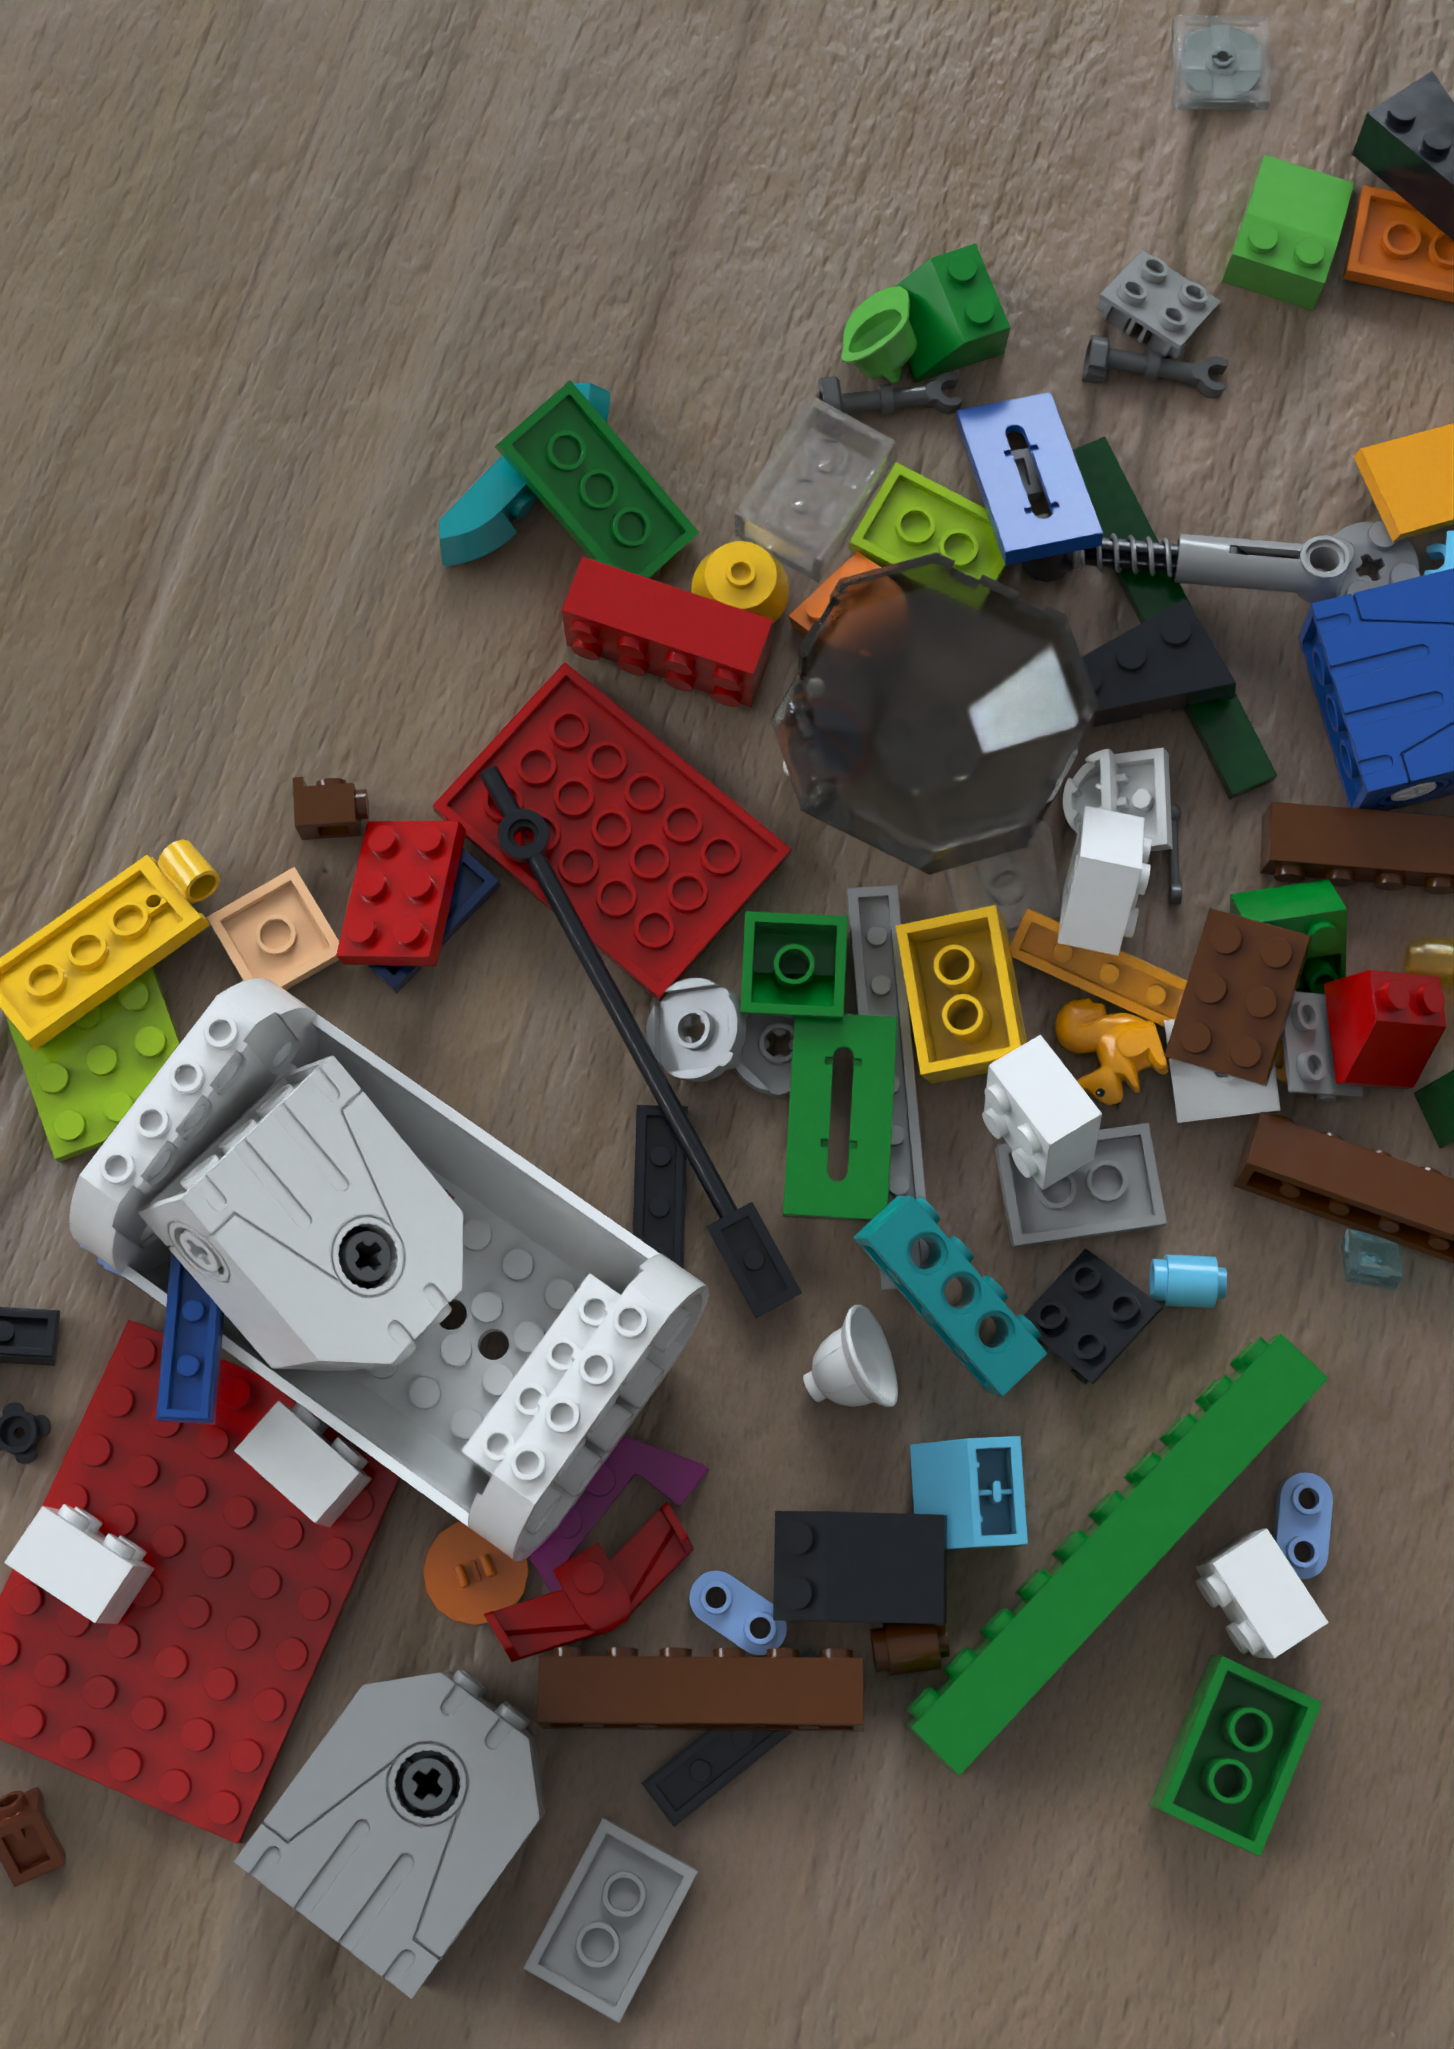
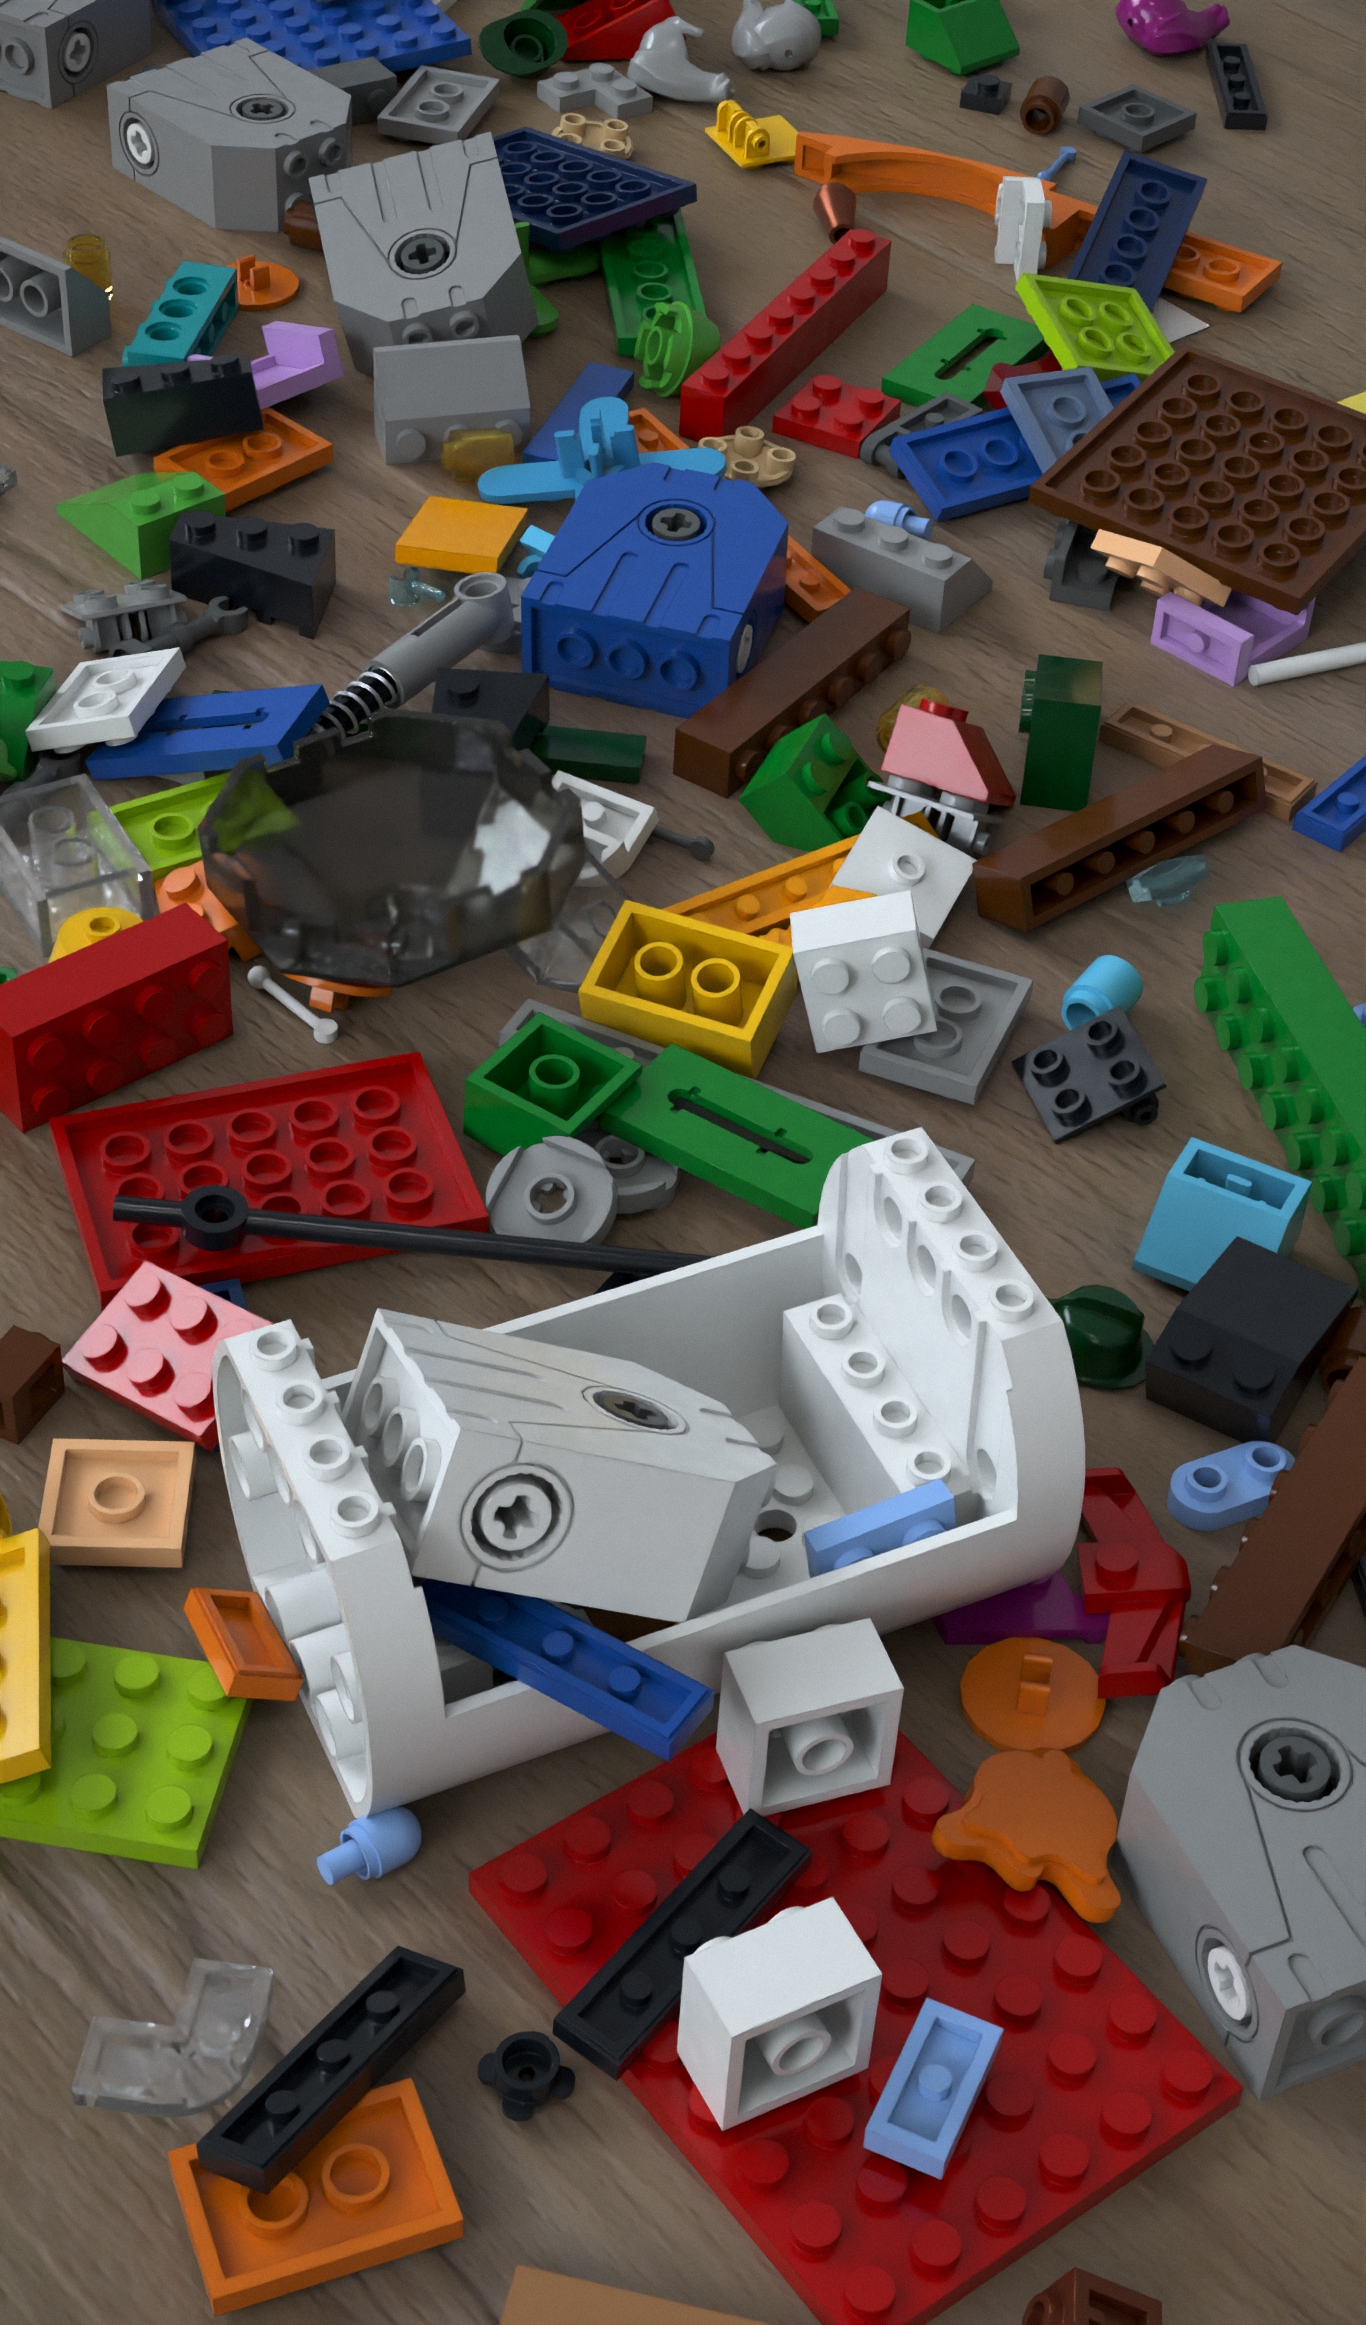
camera: 60 degrees left, 35 degrees down
(108, 1672) = (933, 2088): none -> light blue plate
(137, 1474) = (642, 1981): none -> black tile
(353, 1630) = (1034, 1822): none -> orange tile
(412, 1433) = (881, 1528): none -> light blue plate
(814, 1446) = (1105, 1336): none -> dark green piece
(854, 1364) = (1038, 1235): white hat -> none
(889, 1244) = (1009, 1132): teal brick -> none
(1018, 381) = (105, 701): none -> white plate
(1104, 881) = (661, 838): white brick -> none
(1238, 997) = (854, 807): reddish brown plate -> none
(1273, 364) = (257, 565): none -> black wedge
(1344, 490) = (408, 590): none -> clear light blue hand

